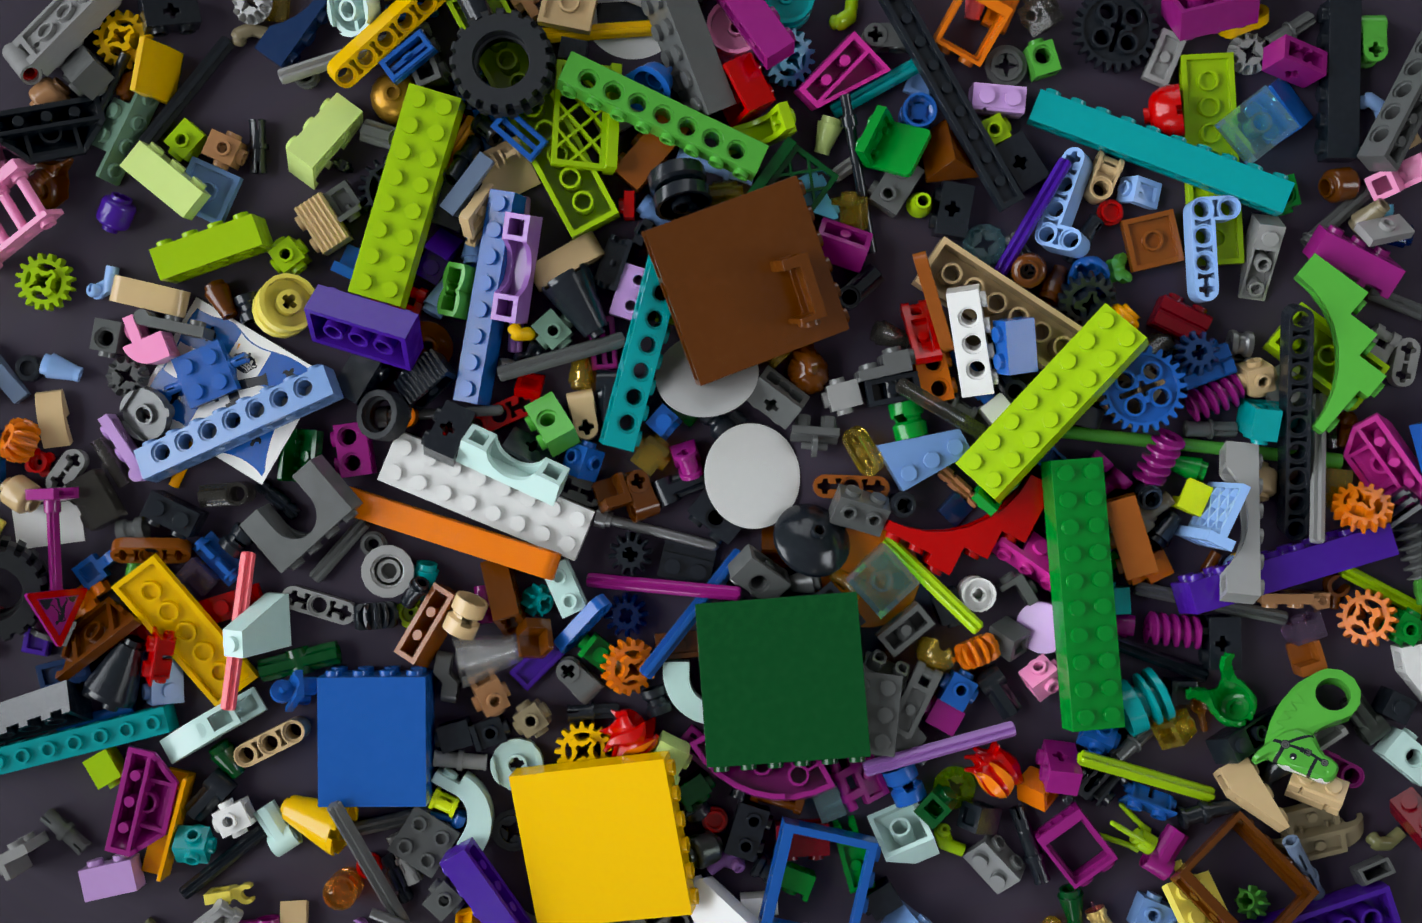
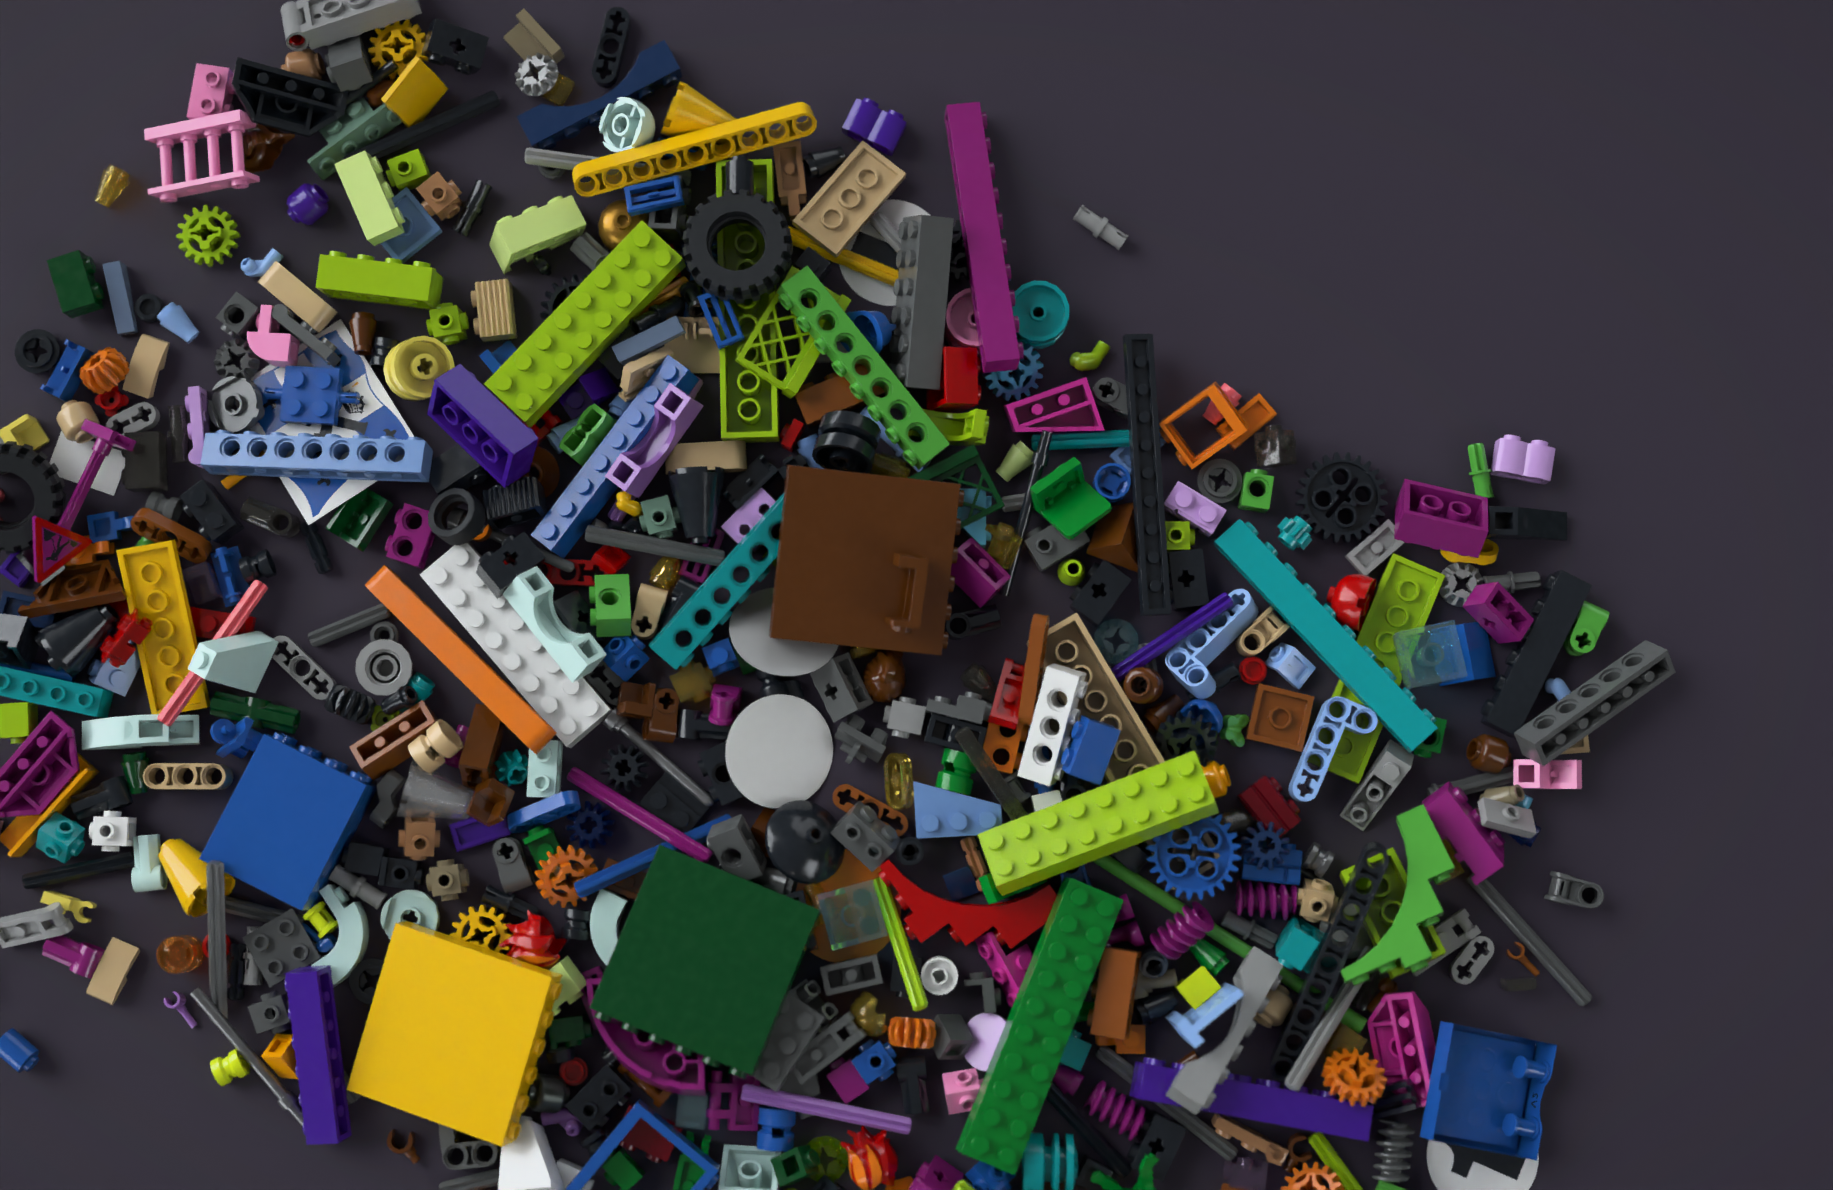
camera: 30 degrees right, 5 degrees down
(246, 31) = (517, 97): dark tan arm -> none
(333, 505) = (366, 576): dark grey arch -> none
(344, 201) = (526, 299): dark grey bracket -> none
(1091, 78) = (1294, 533): none -> teal gear

